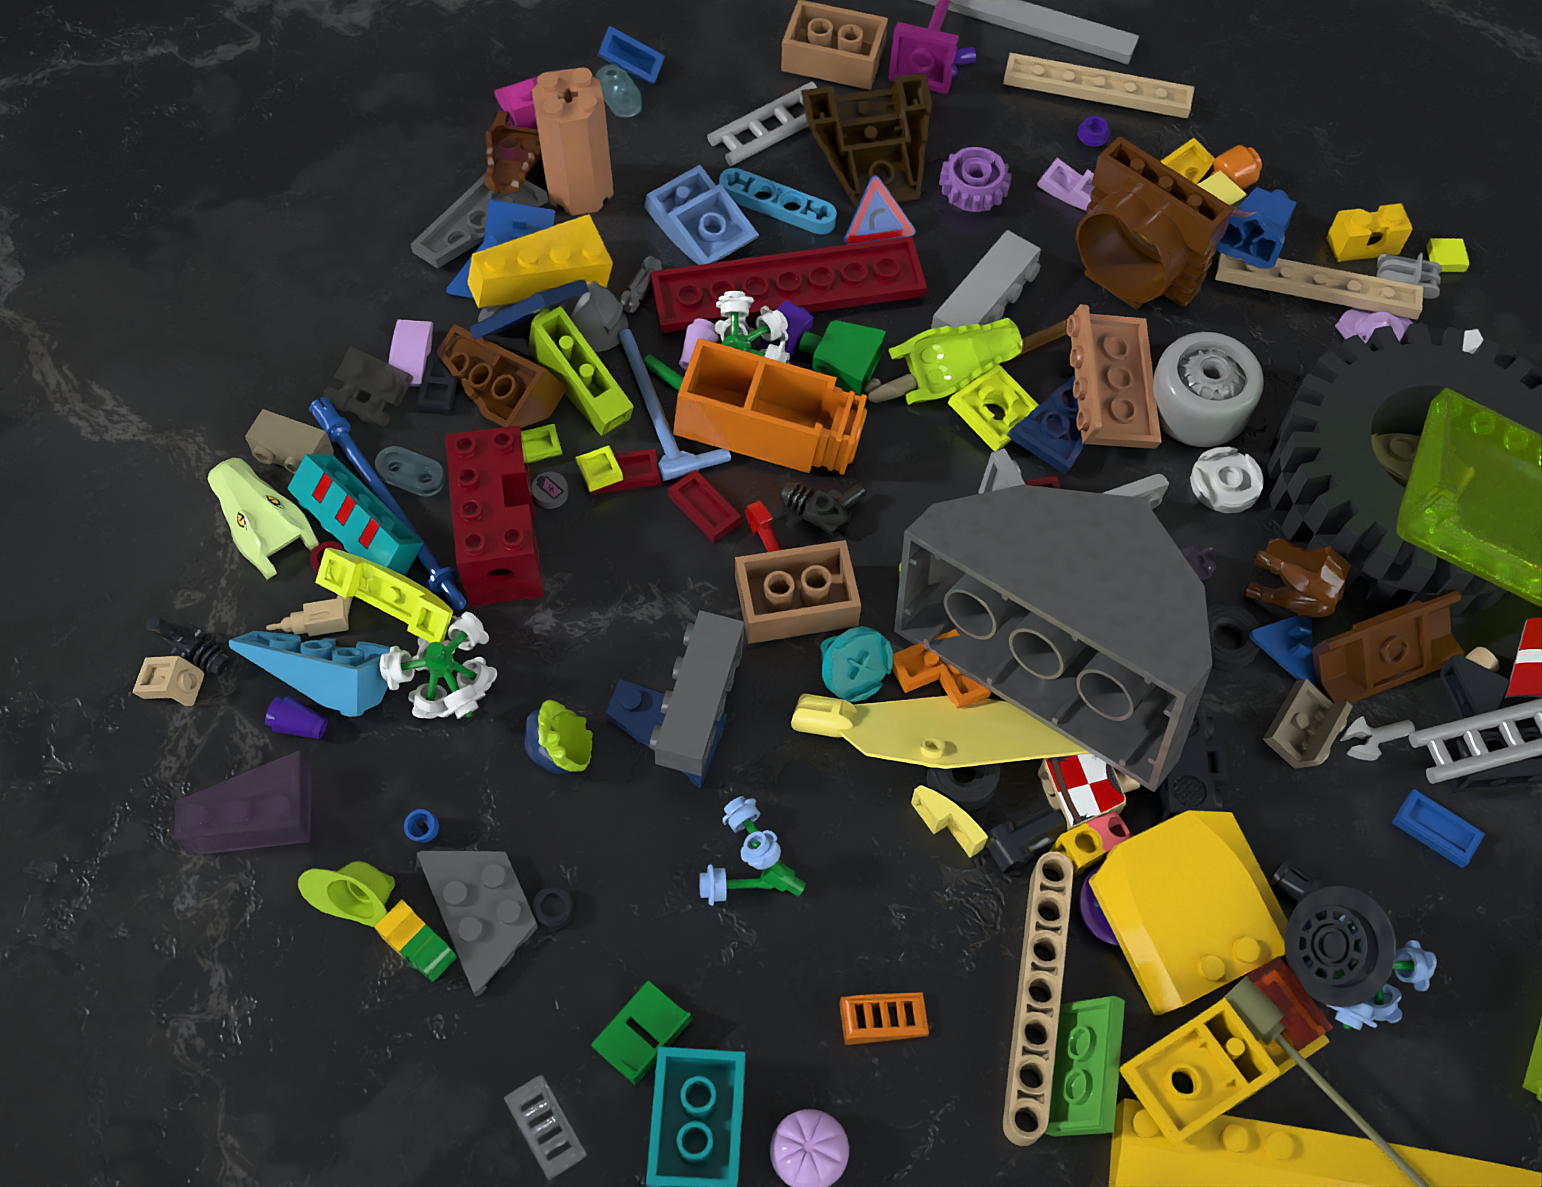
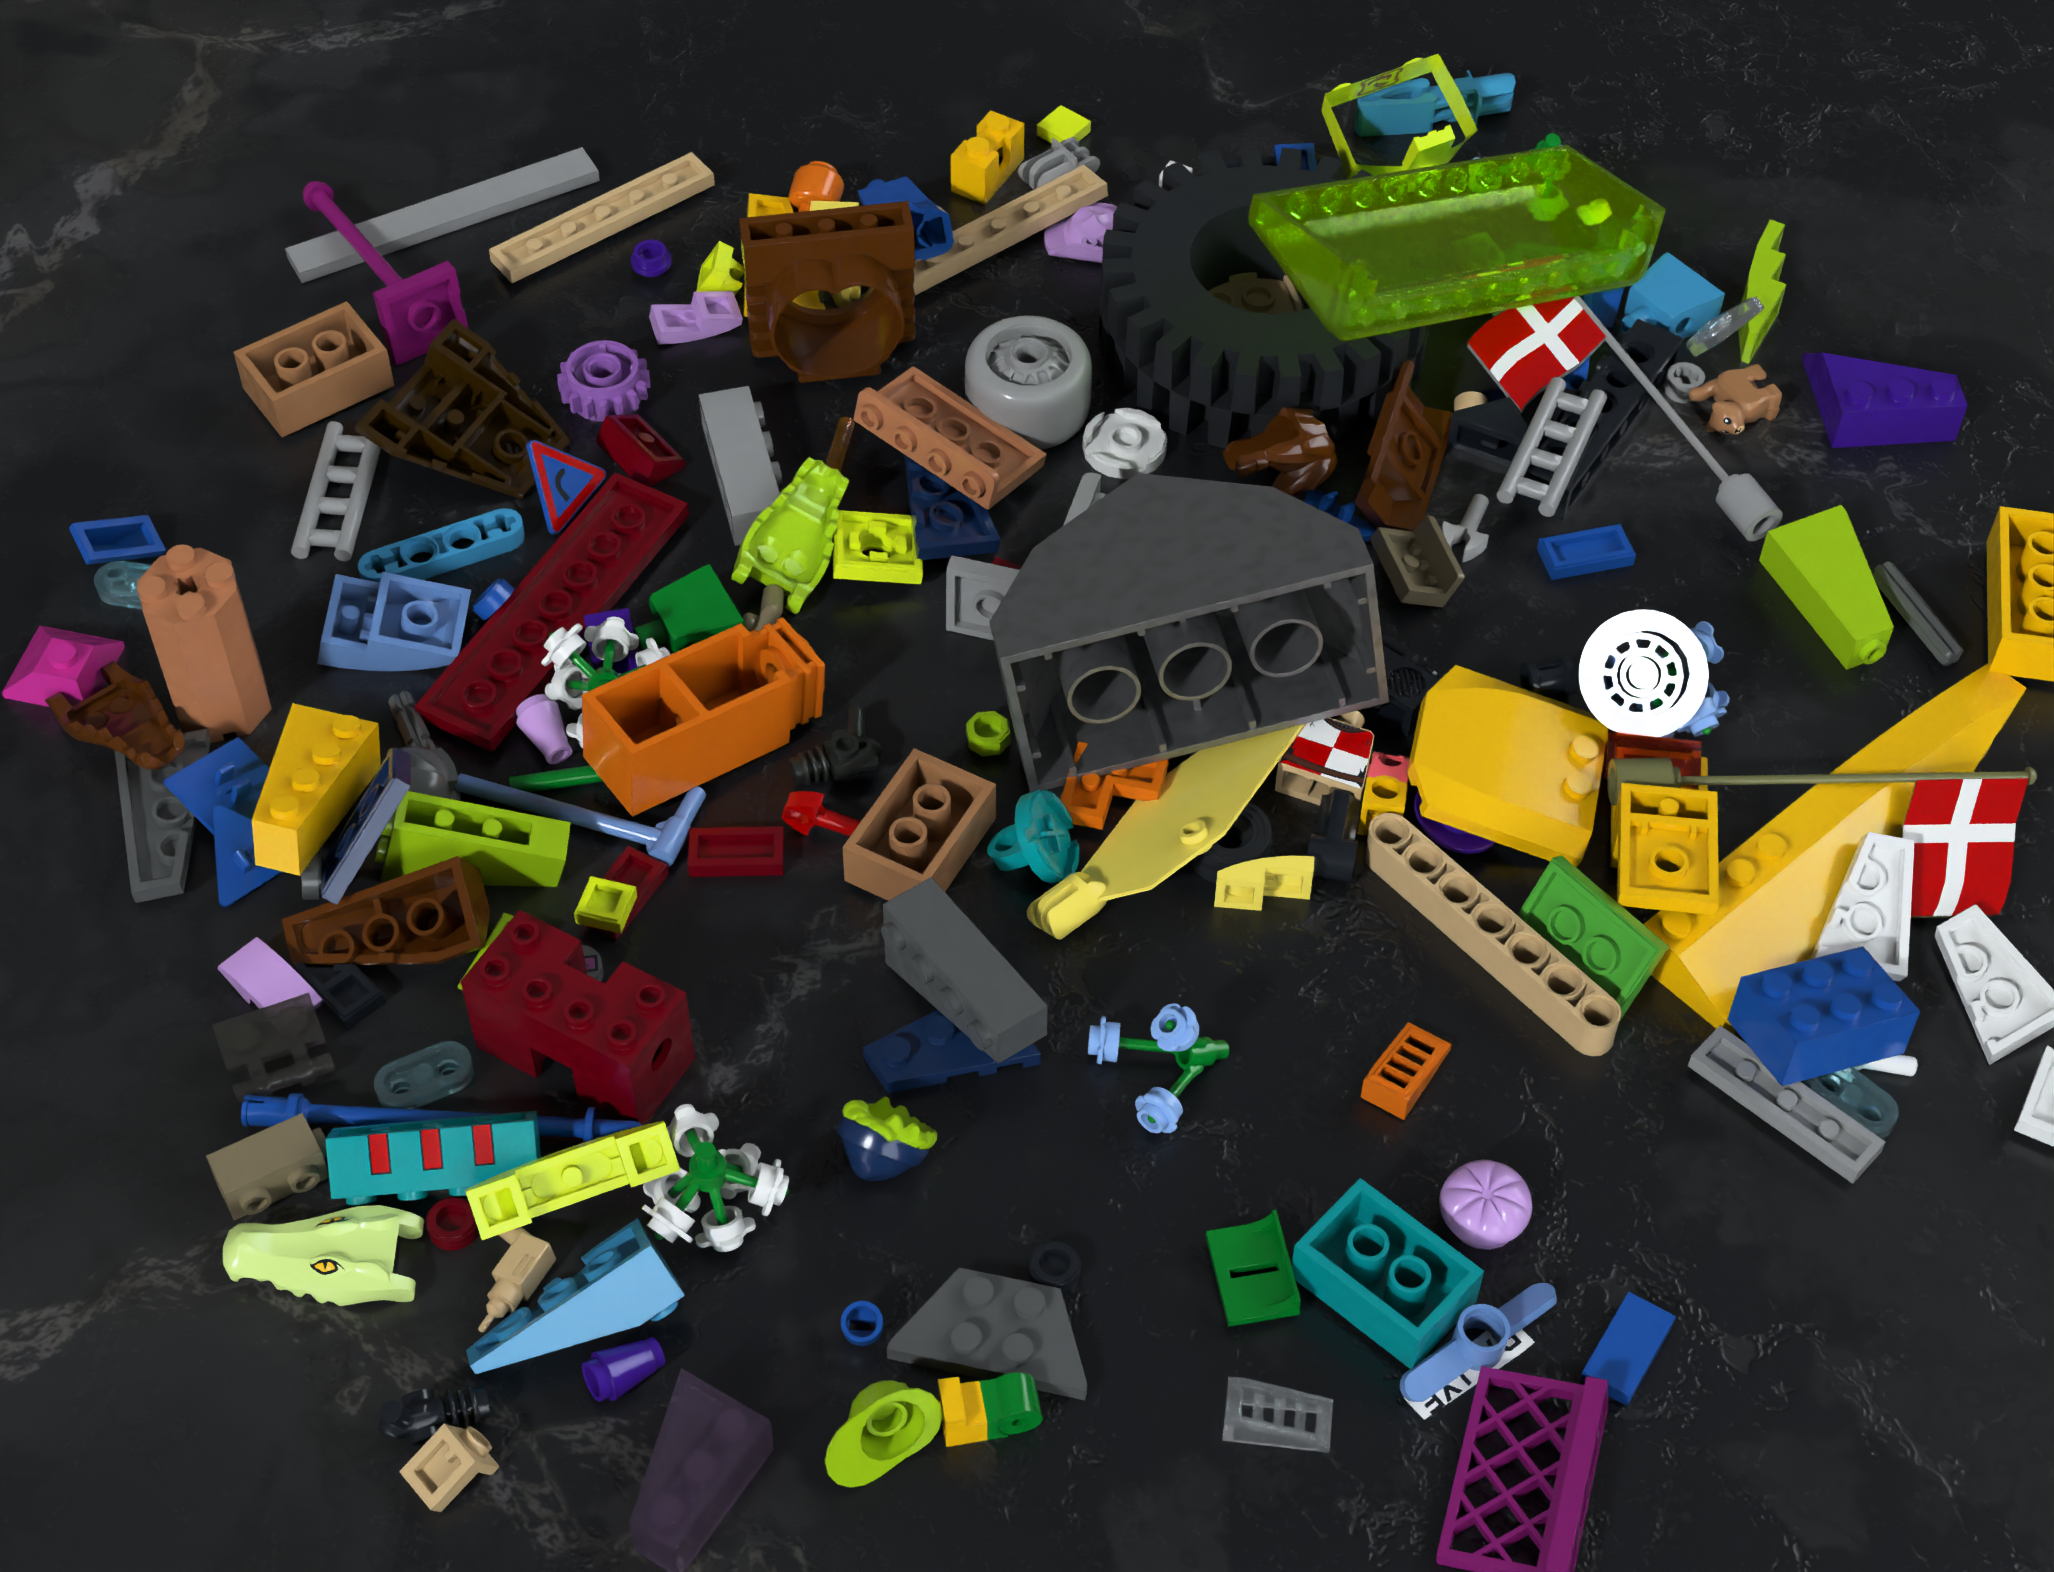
camera: 50 degrees left, 10 degrees down
(762, 249) = (492, 598): none -> blue tile
(949, 235) = (638, 449): none -> dark red slope

